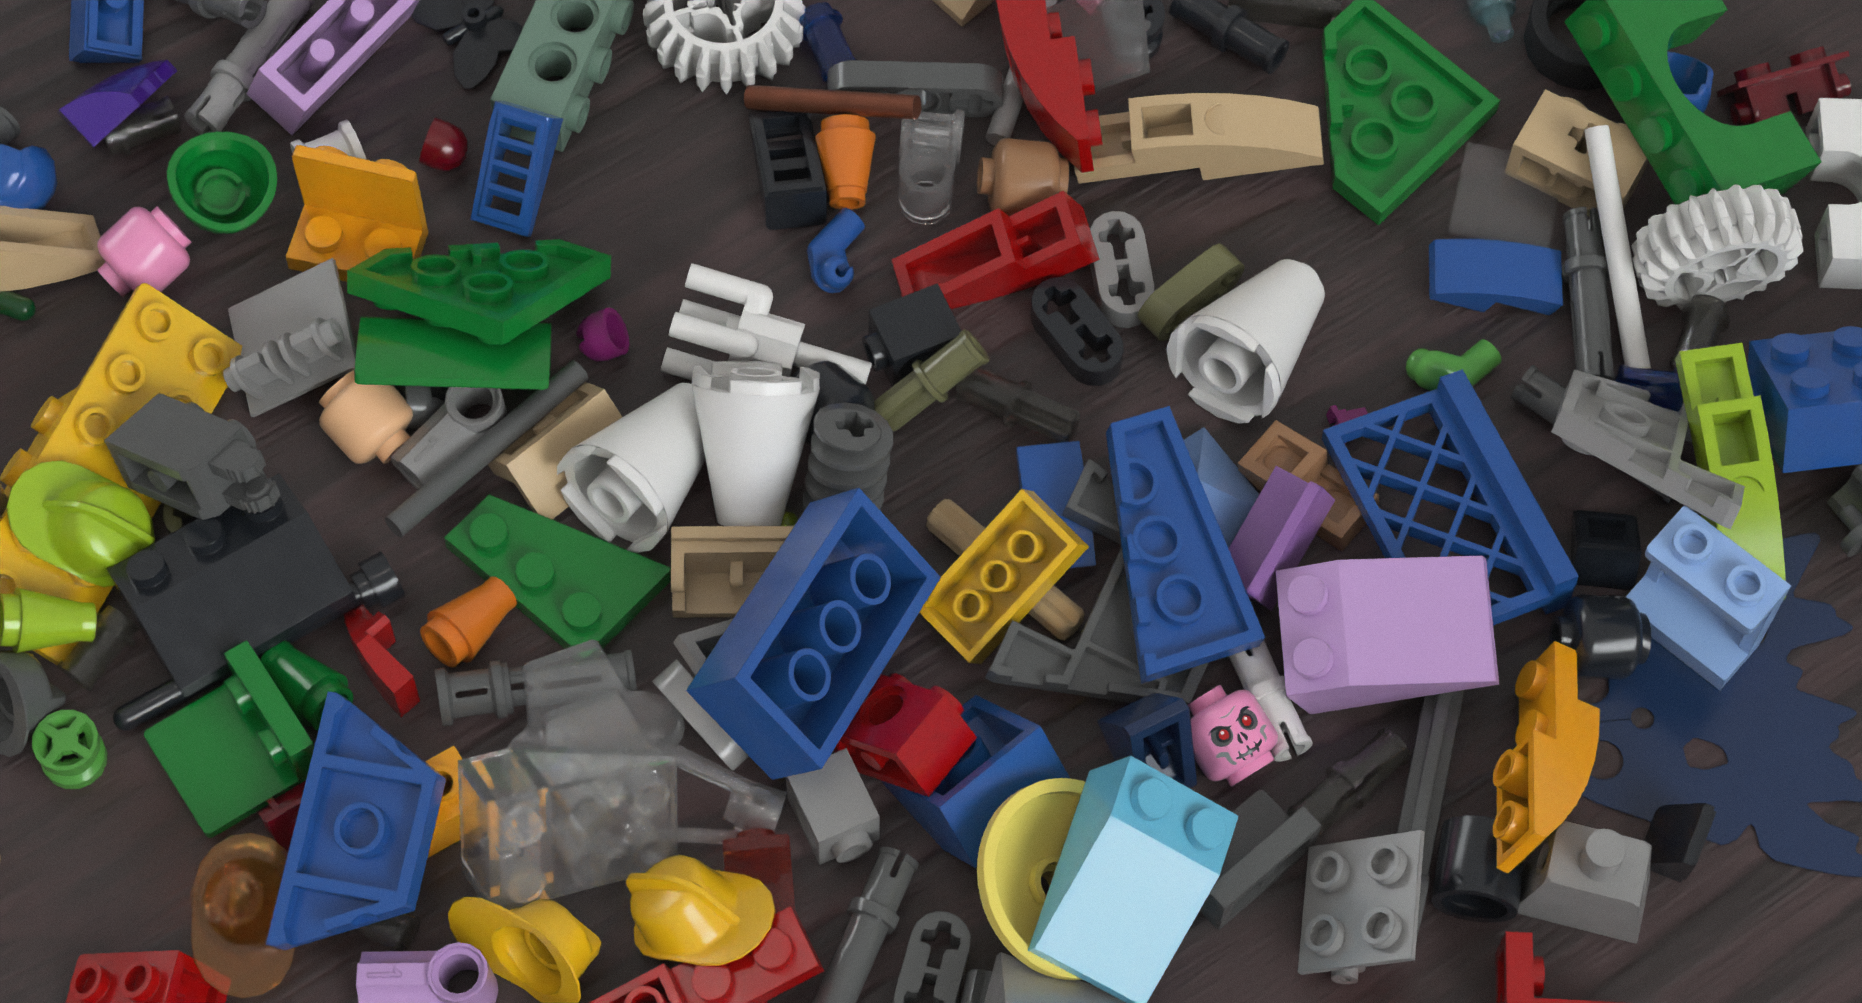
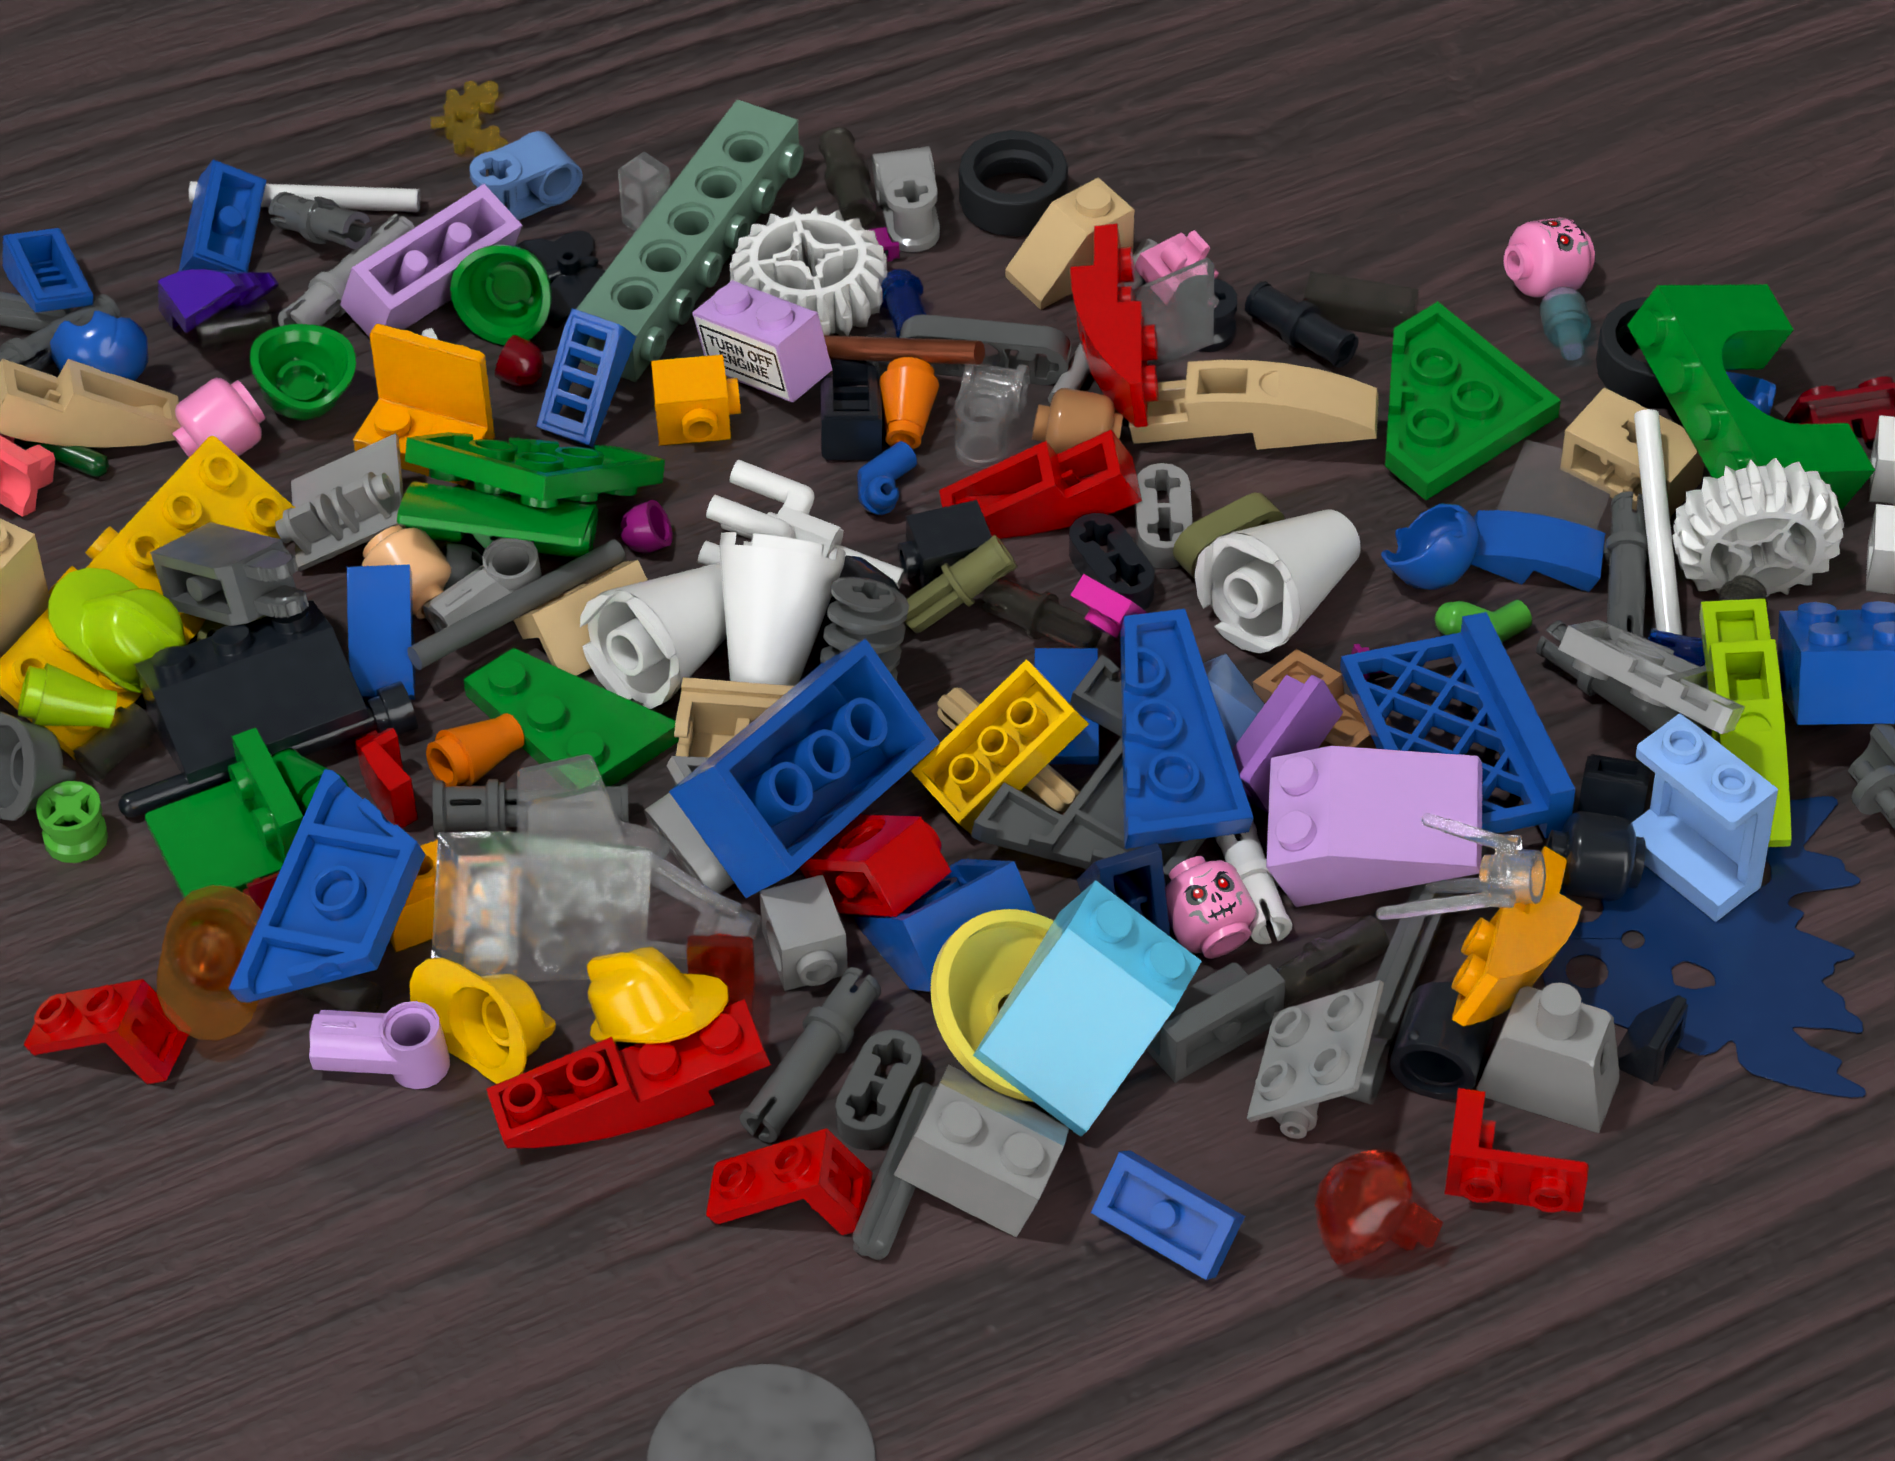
camera: 10 degrees right, 15 degrees down
(352, 494) = (380, 627): none -> blue slope
(416, 70) = (501, 293): none -> green helmet
(629, 178) = (693, 399): none -> light orange brick
(691, 106) = (764, 340): none -> lavender brick
(1092, 404) = (1105, 605): none -> dark pink plate
(1397, 288) = (1435, 547): none -> blue hair
(1535, 702) = (1503, 880): none -> clear plant

